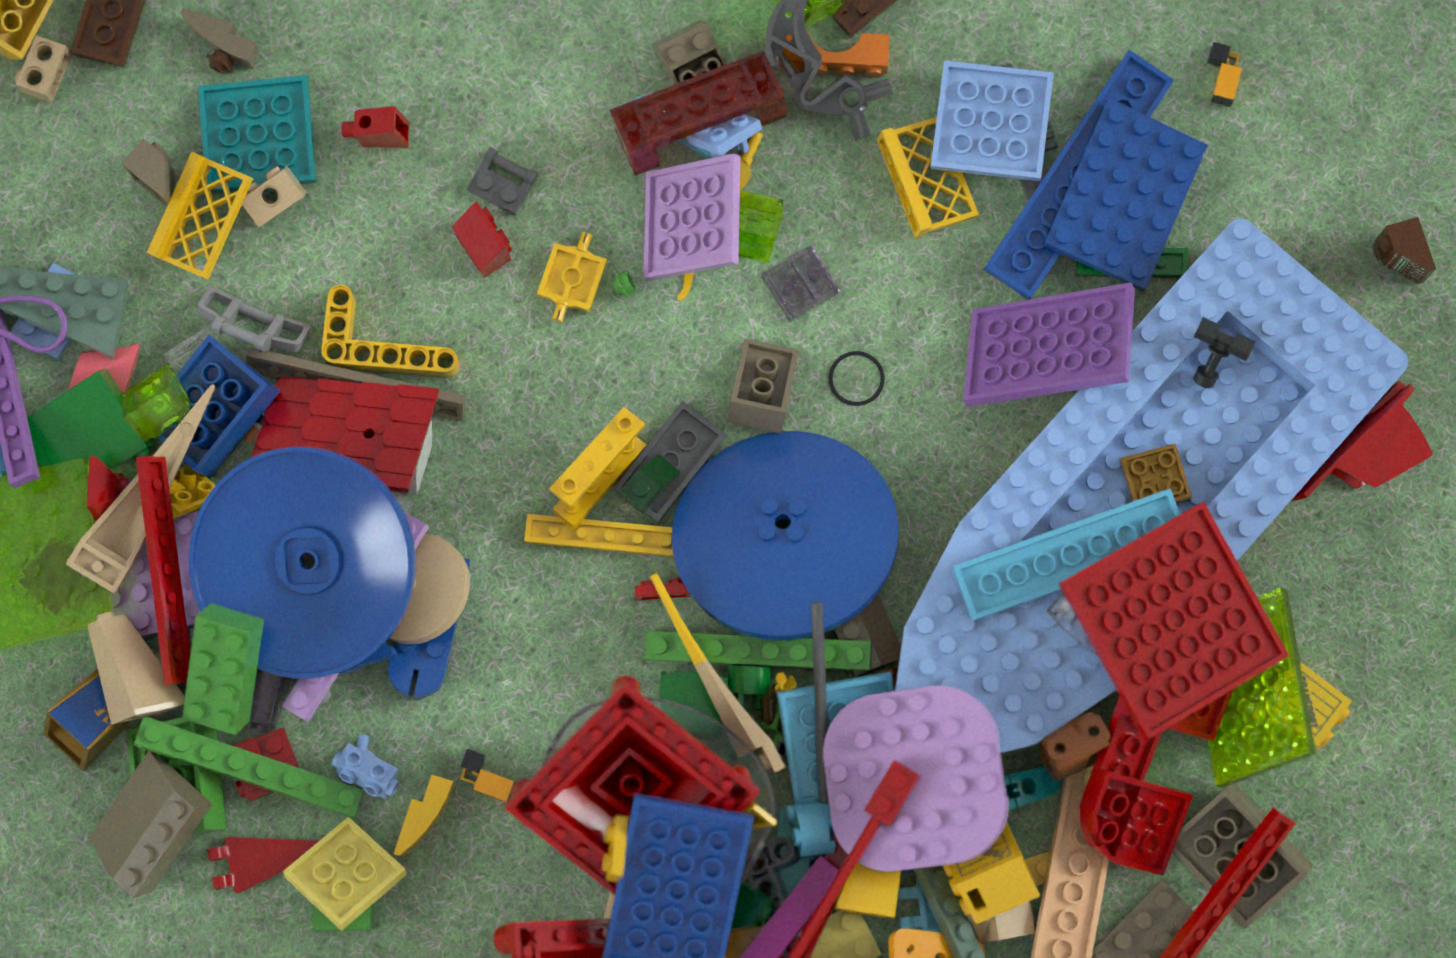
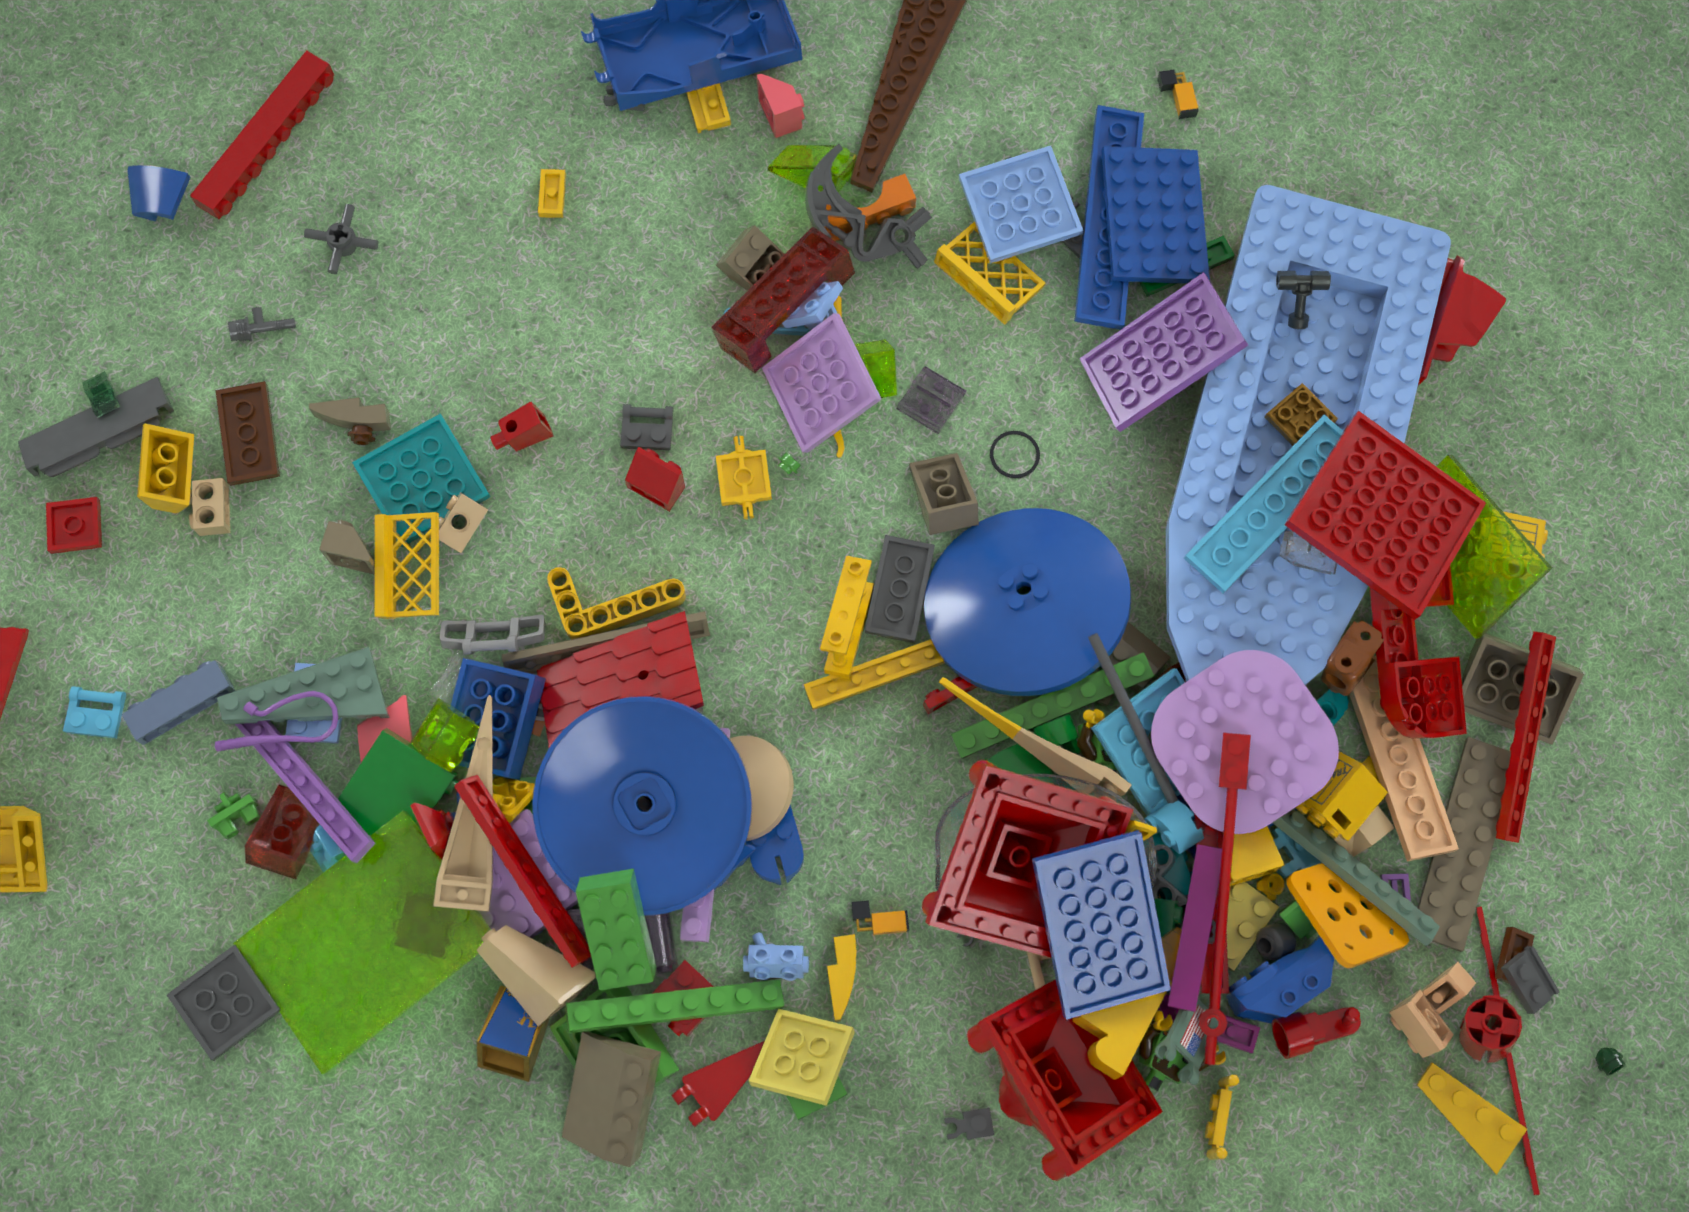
camera: 30 degrees left, 5 degrees down
(614, 860) = (1040, 921): yellow plate -> none
(649, 483) = (893, 612): dark green slope -> none
(881, 936) = (1276, 888): none -> yellow plate
(1405, 250) = (1392, 162): reddish brown slope -> none

